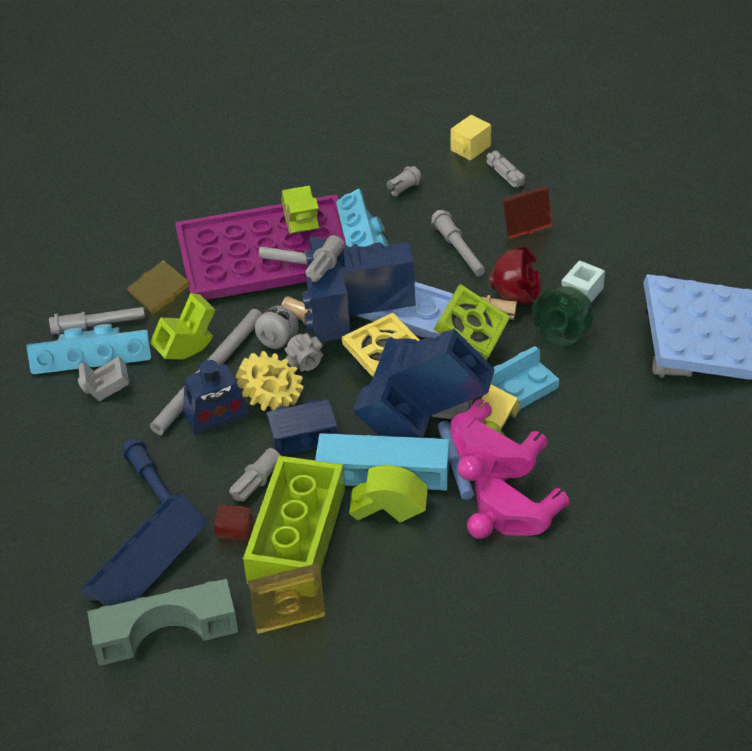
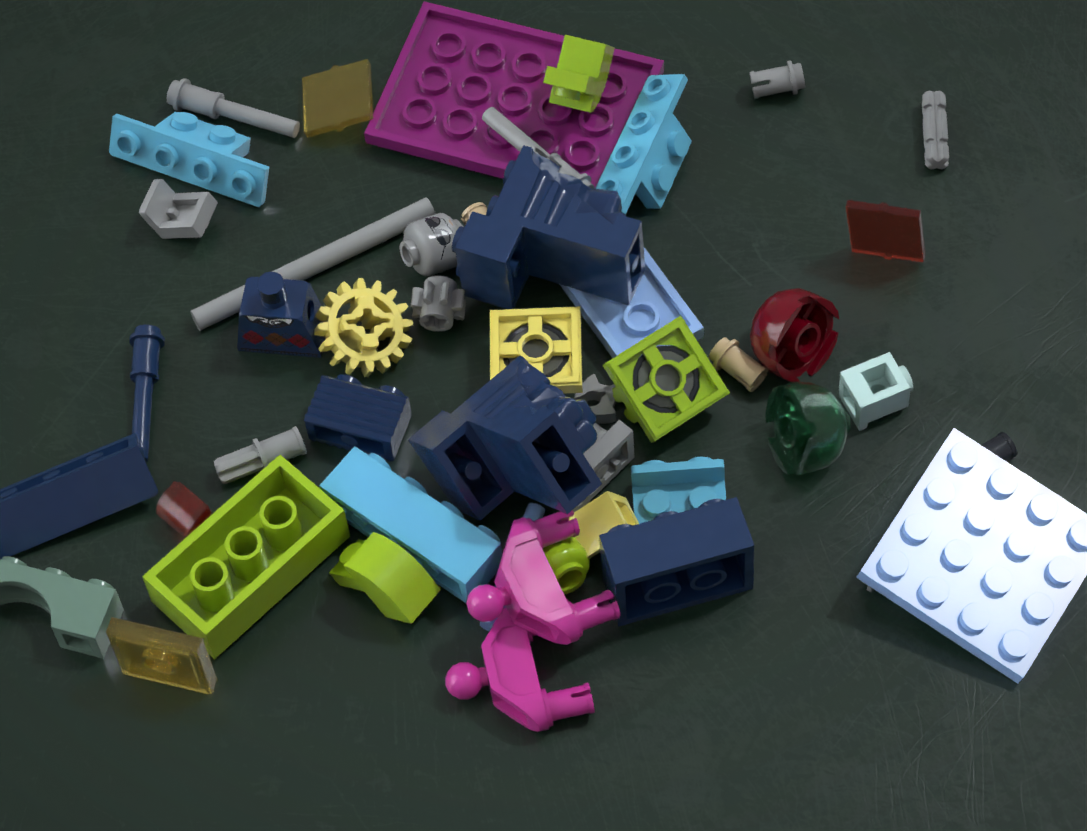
camera: 35 degrees right, 15 degrees up
(188, 334) = (314, 196): lime brick -> none
(325, 258) = (507, 196): light grey axle -> none
(443, 222) = (775, 181): light grey pin -> none
(470, 137) = (922, 50): light yellow brick -> none
(556, 399) = (678, 560): none -> dark blue brick

